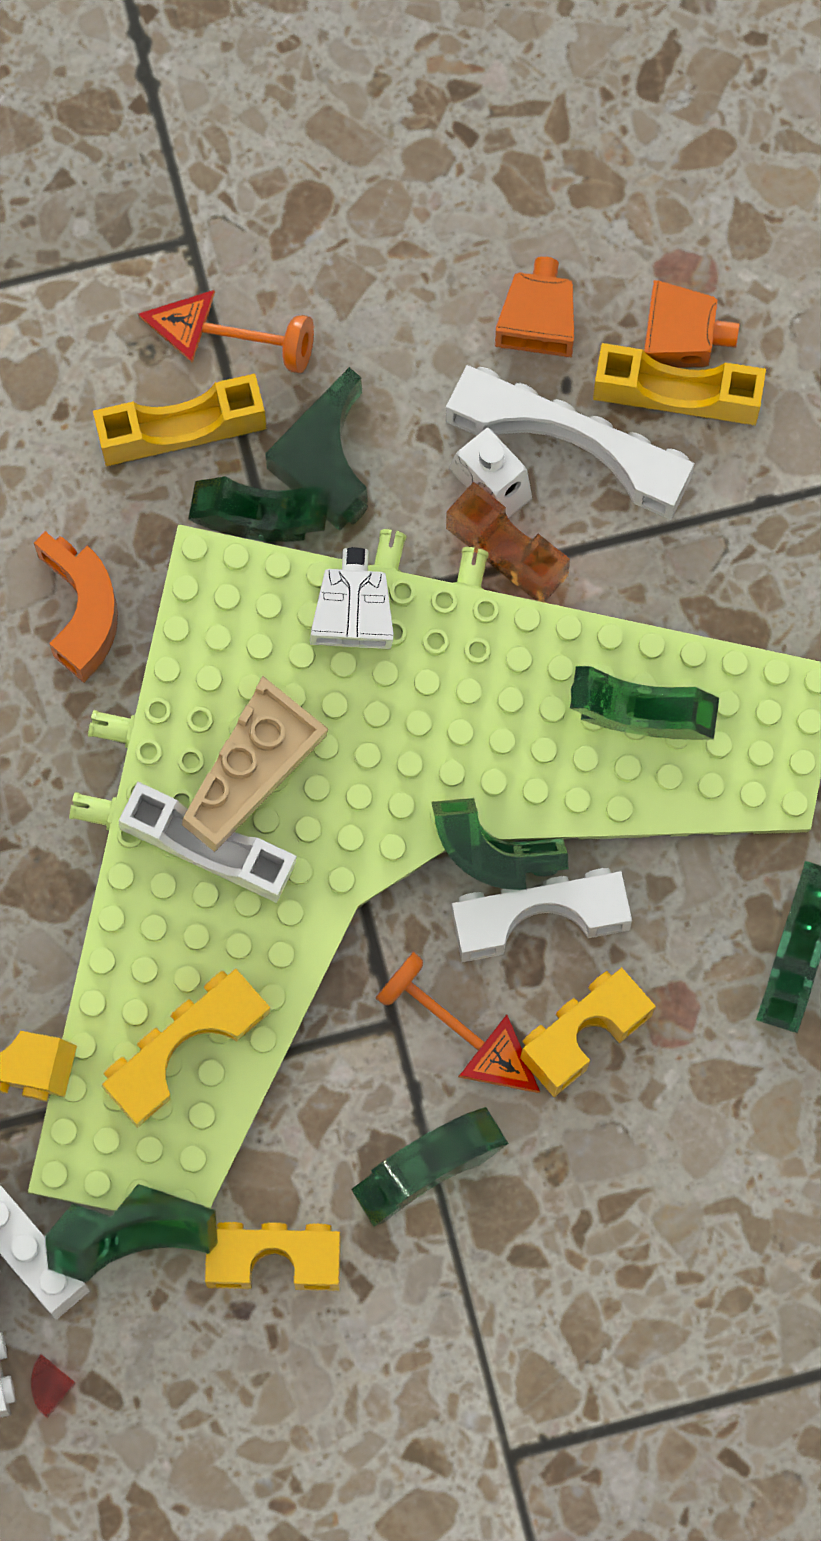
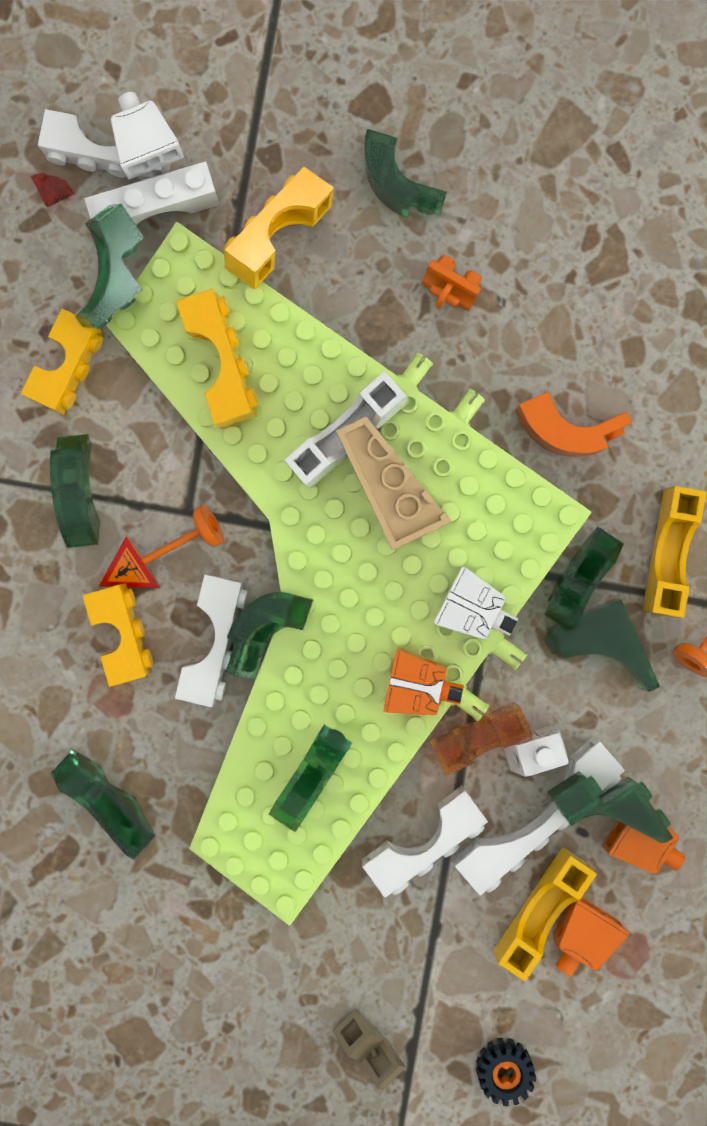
camera: 115 degrees right, 15 degrees up
(476, 630) = (419, 685): none -> orange torso
(501, 345) = (625, 802): none -> clear green arch
(620, 530) = (394, 865): none -> white arch

